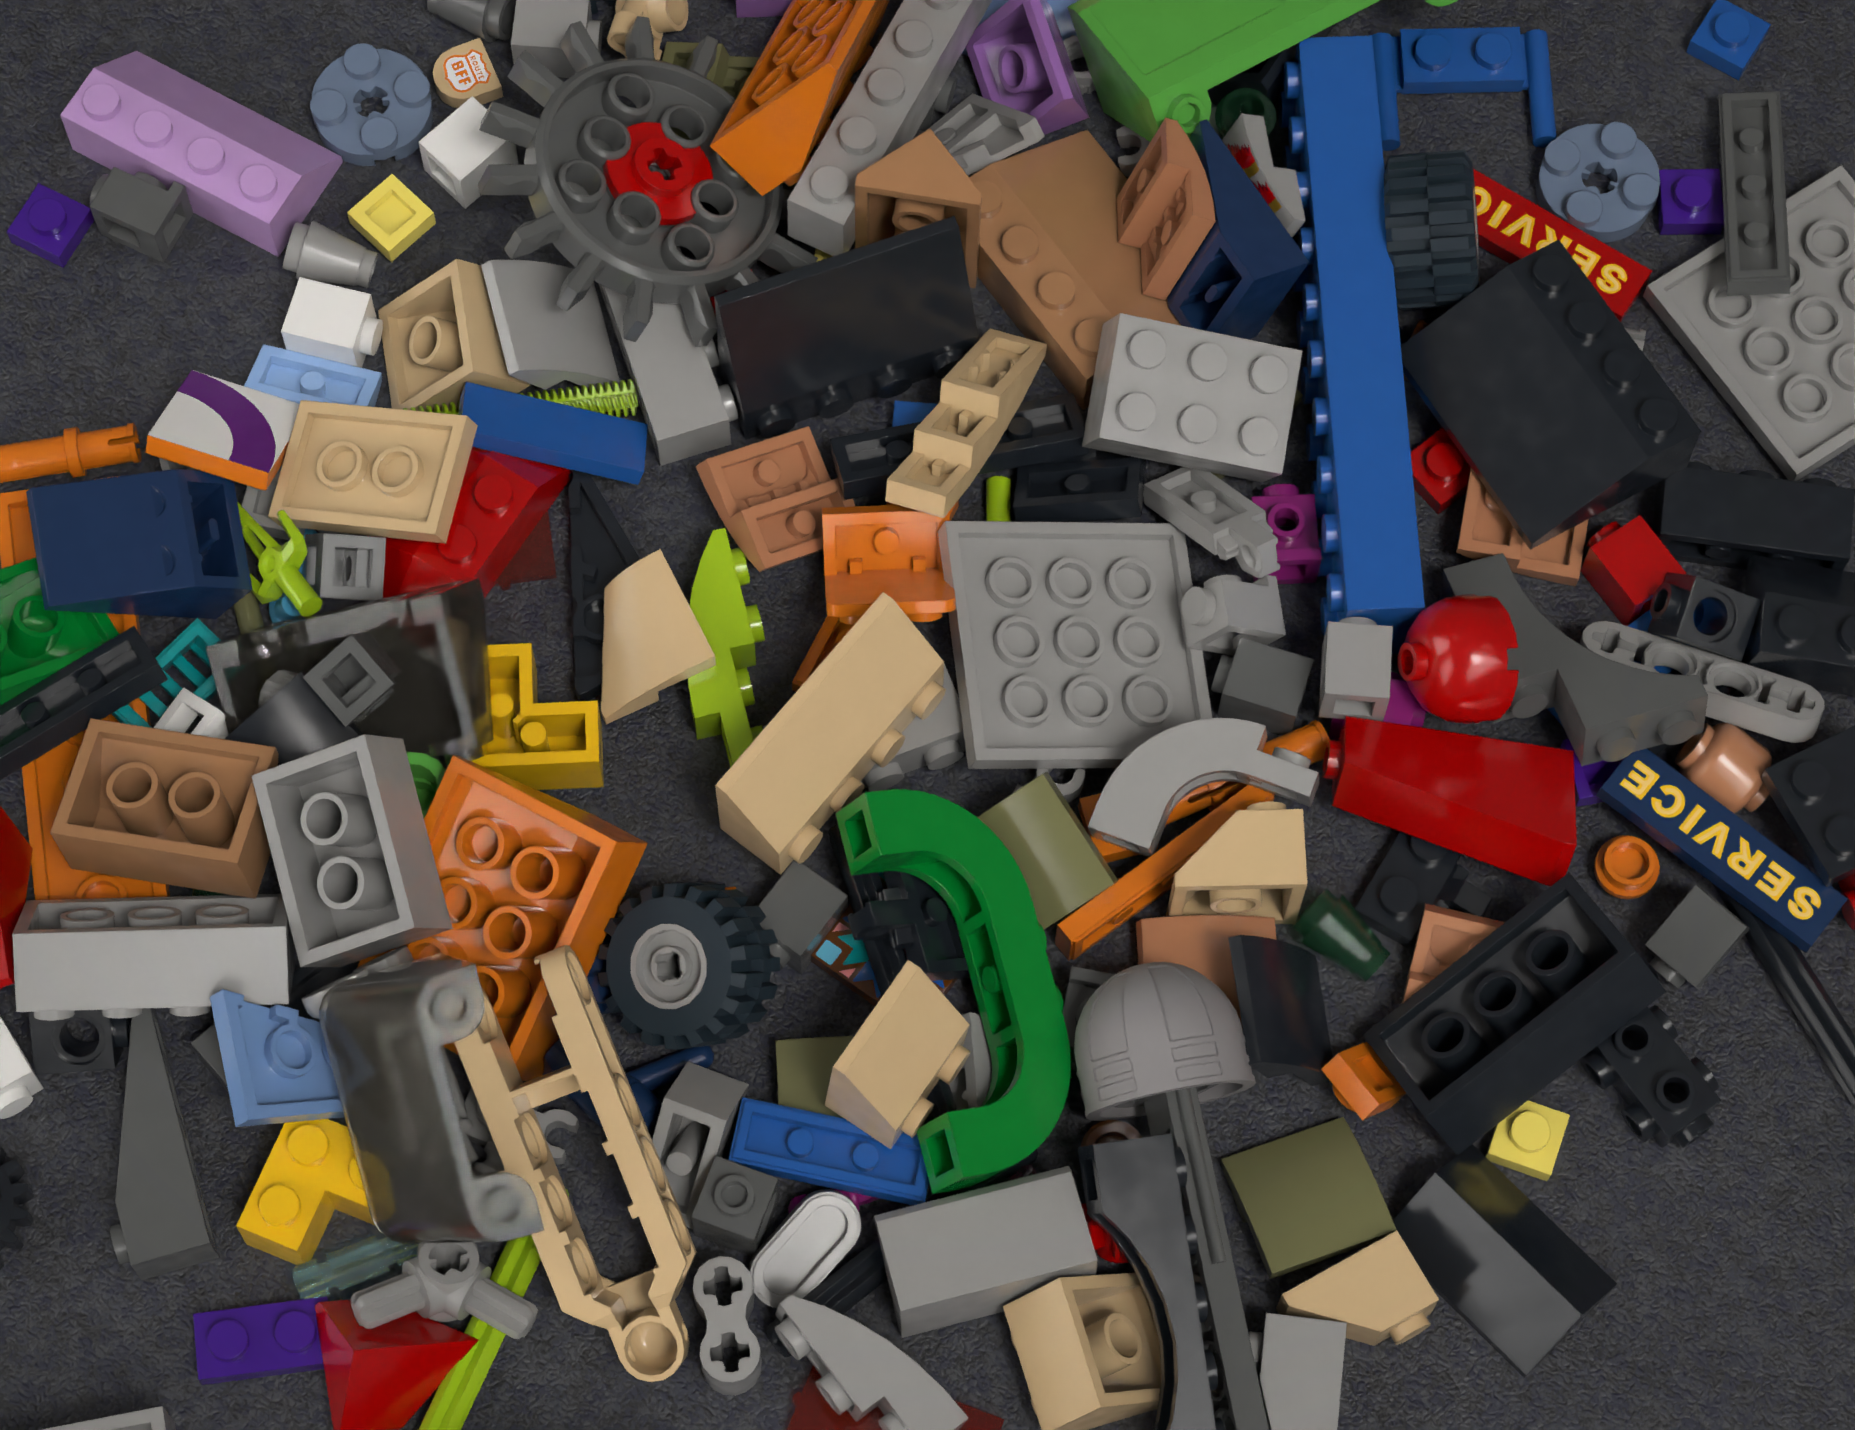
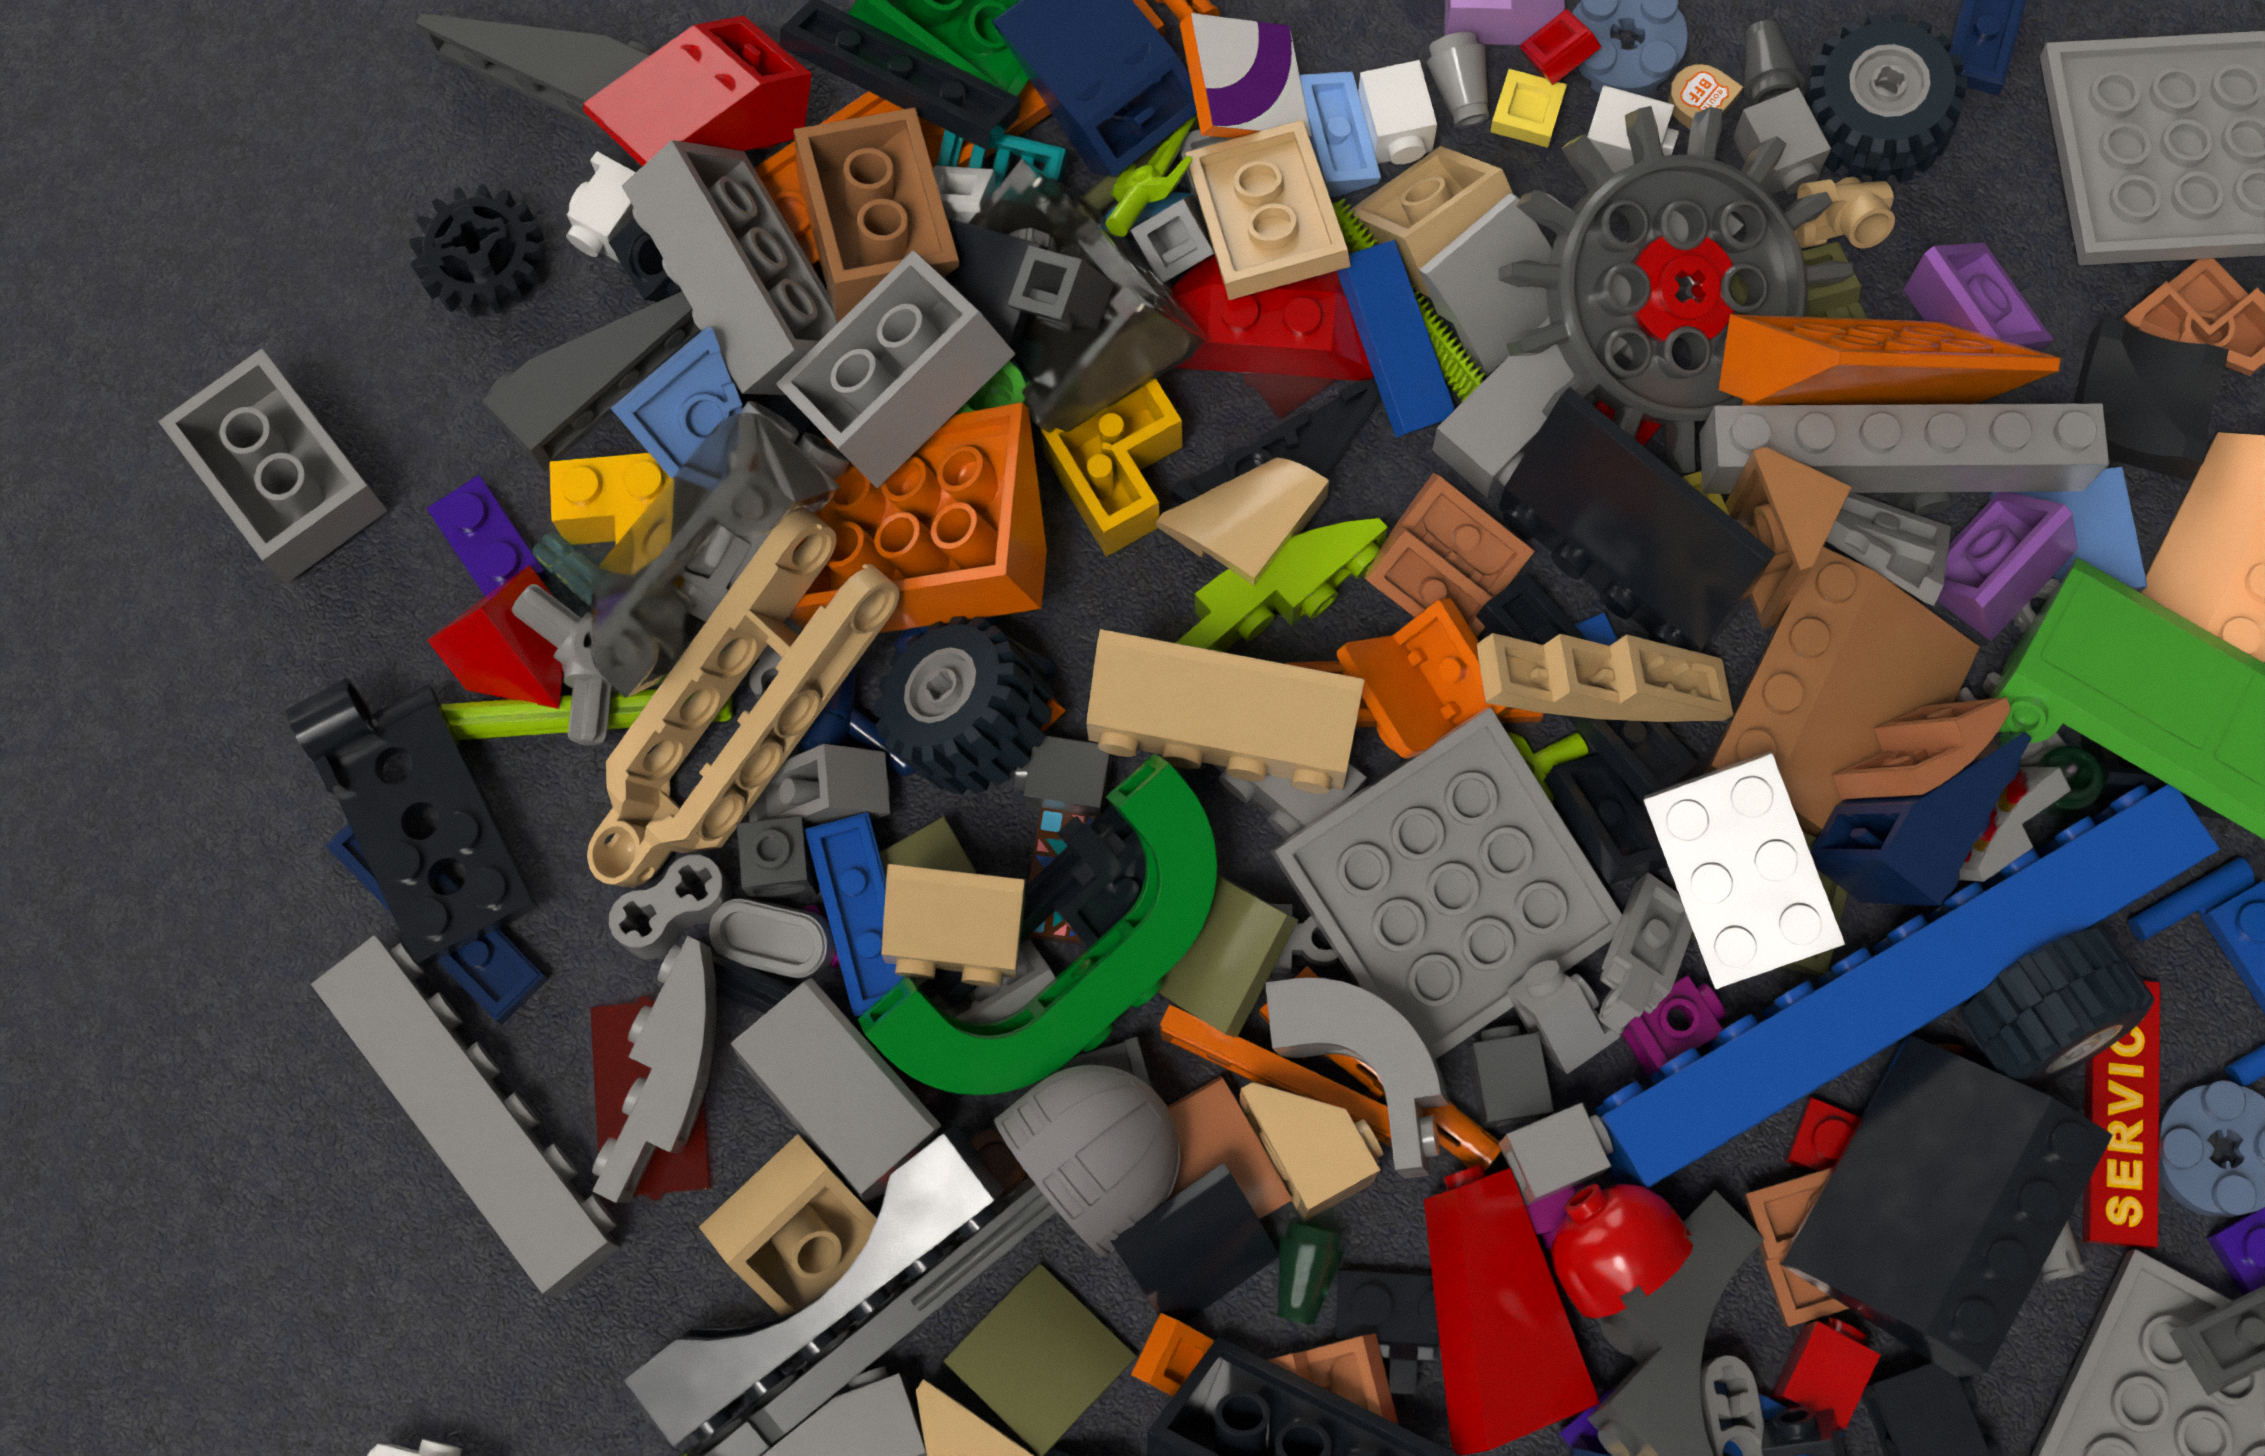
camera: 70 degrees right, 5 degrees up
(355, 159) = (1560, 46): none -> red tile

